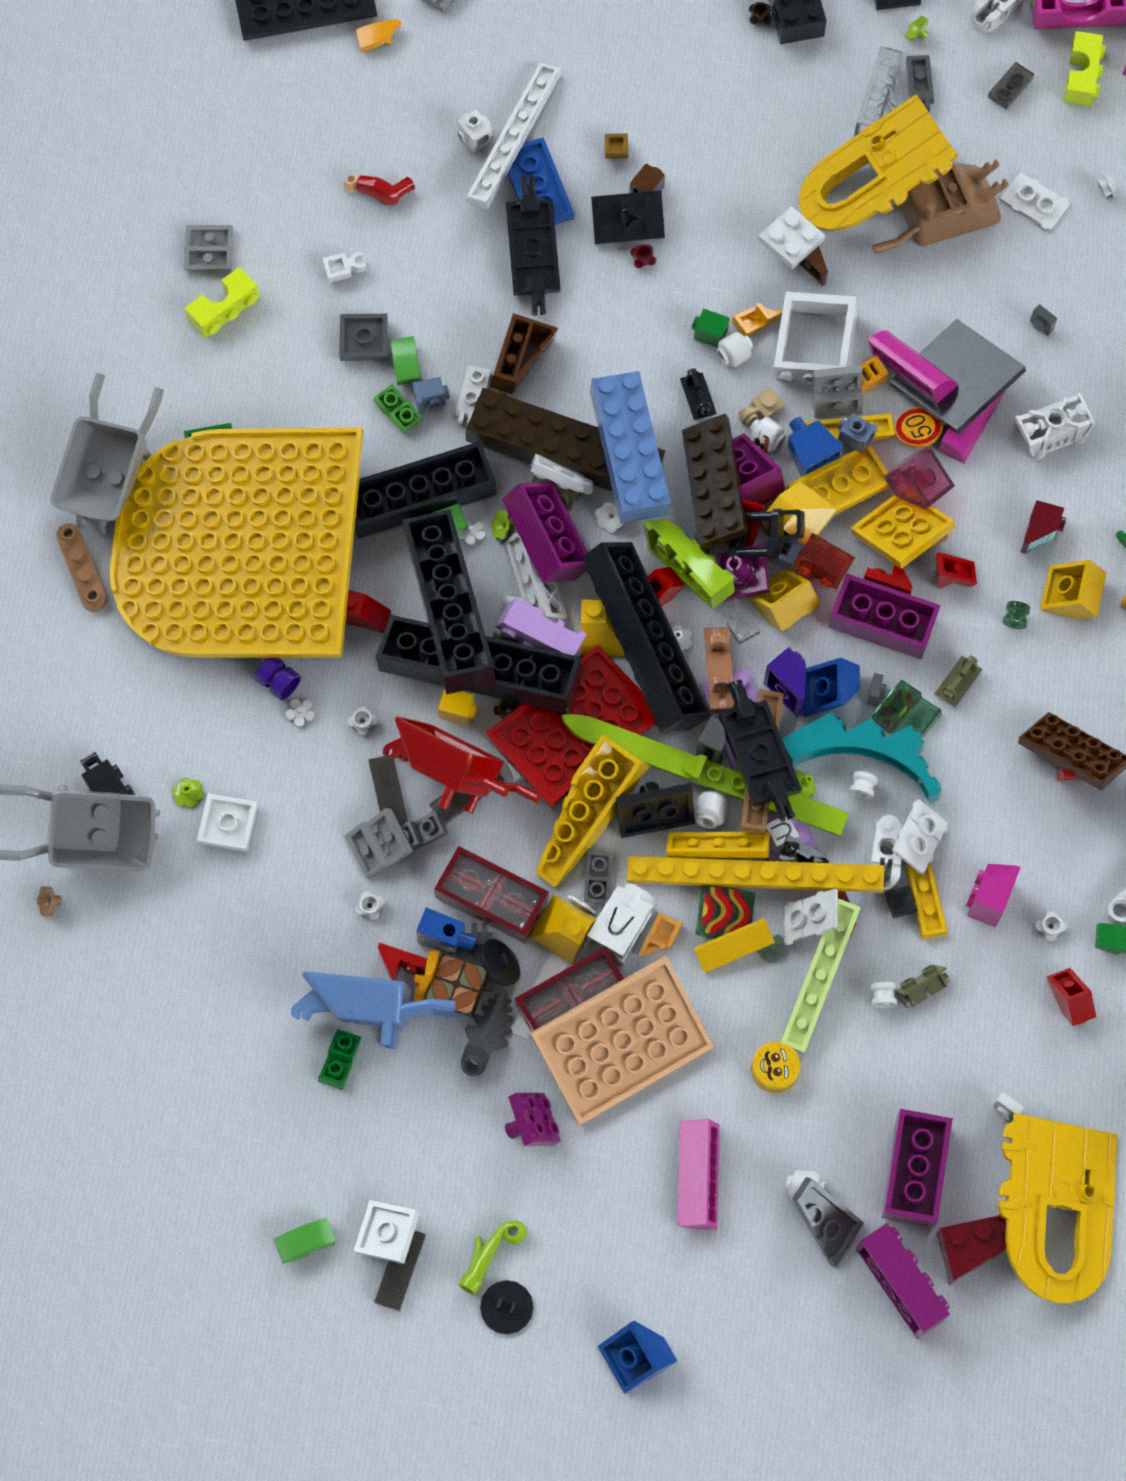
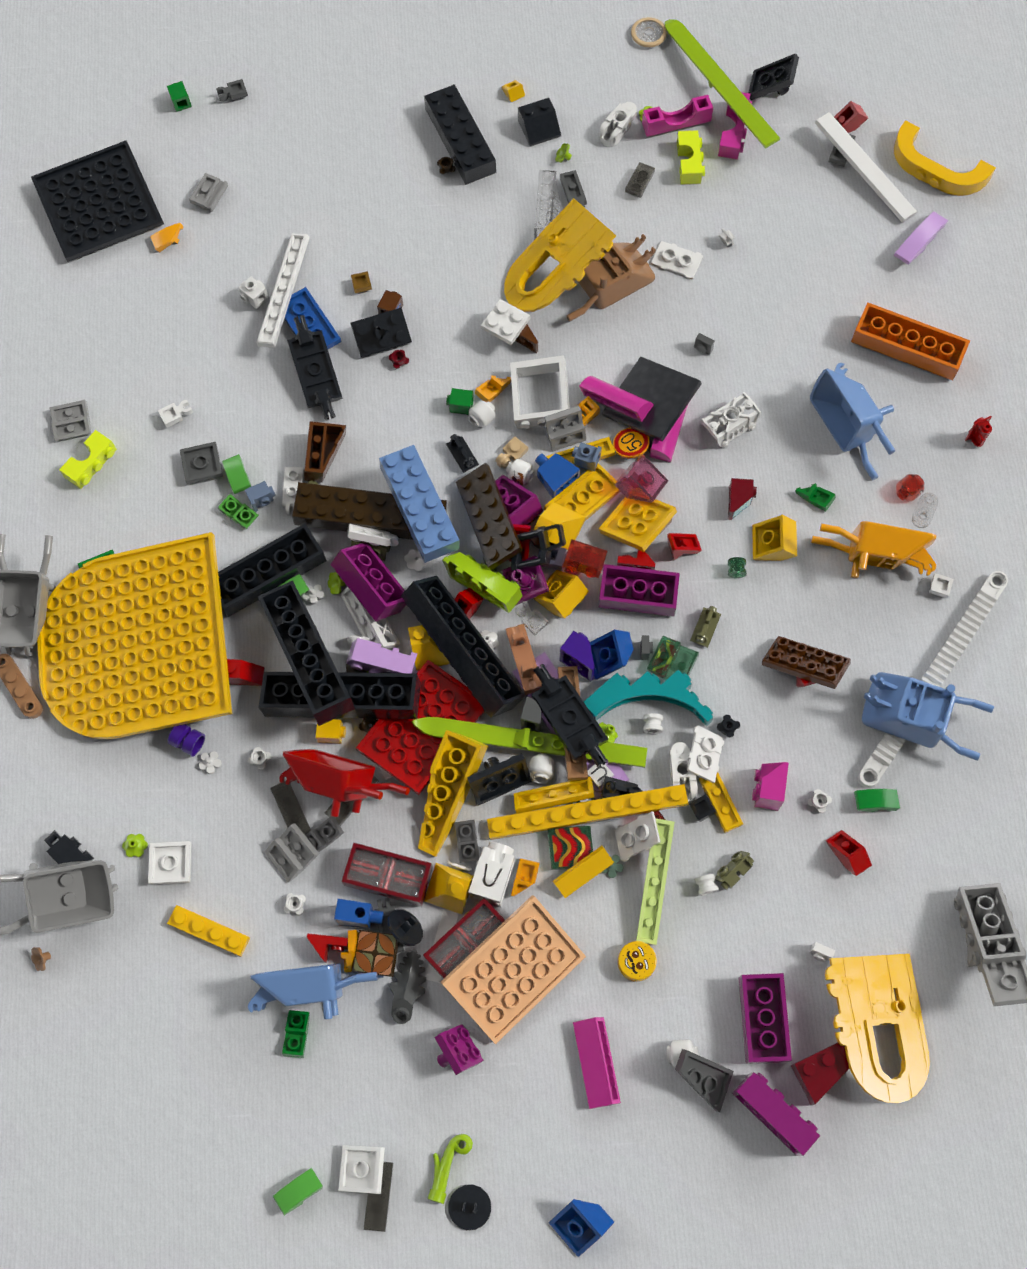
camera: 10 degrees left, 0 degrees up
(258, 914) = (208, 930): none -> yellow plate
(379, 188) = (190, 349): red arm -> none
(955, 816) = (729, 732): none -> black plate

